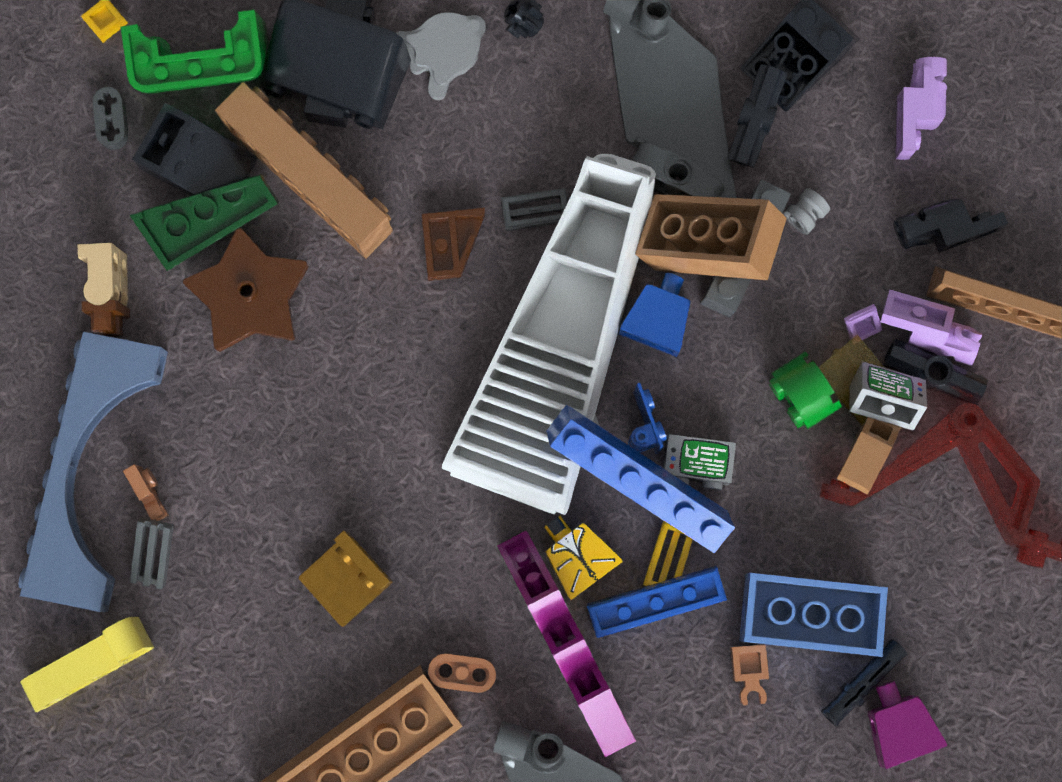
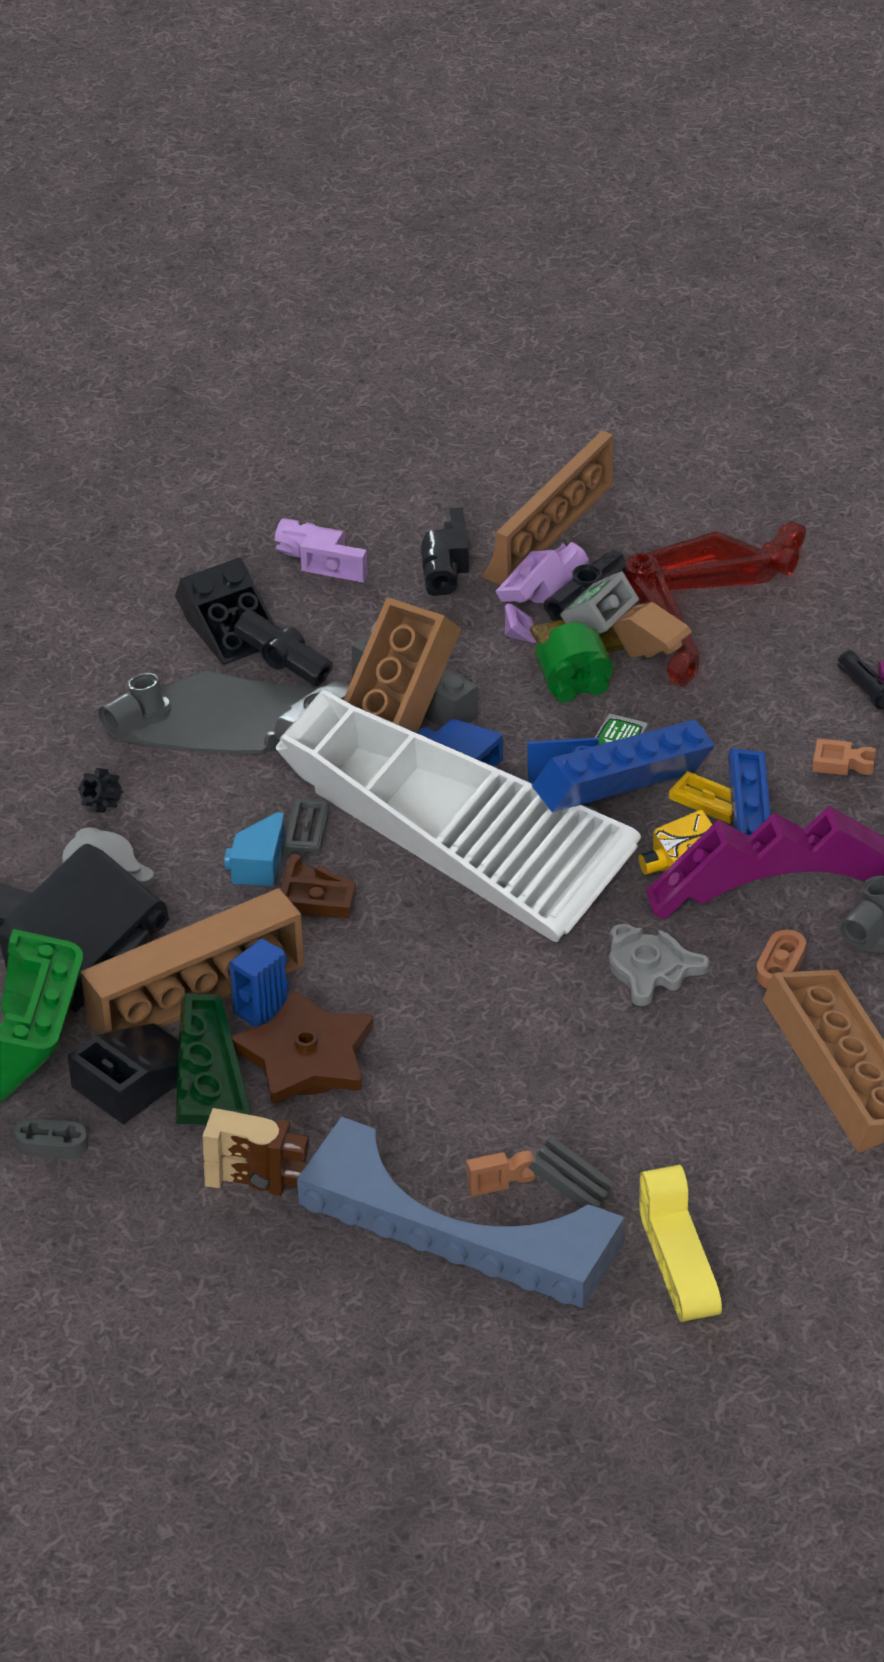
camera: 75 degrees left, 40 degrees down
(301, 231) = (259, 982): none -> blue brick
(345, 579) = (647, 1023): pearl gold bracket -> none
(438, 554) = (651, 961): none -> light grey tile
(482, 178) = (257, 852): none -> dark azure slope
(813, 614) = (796, 698): medium blue brick -> none

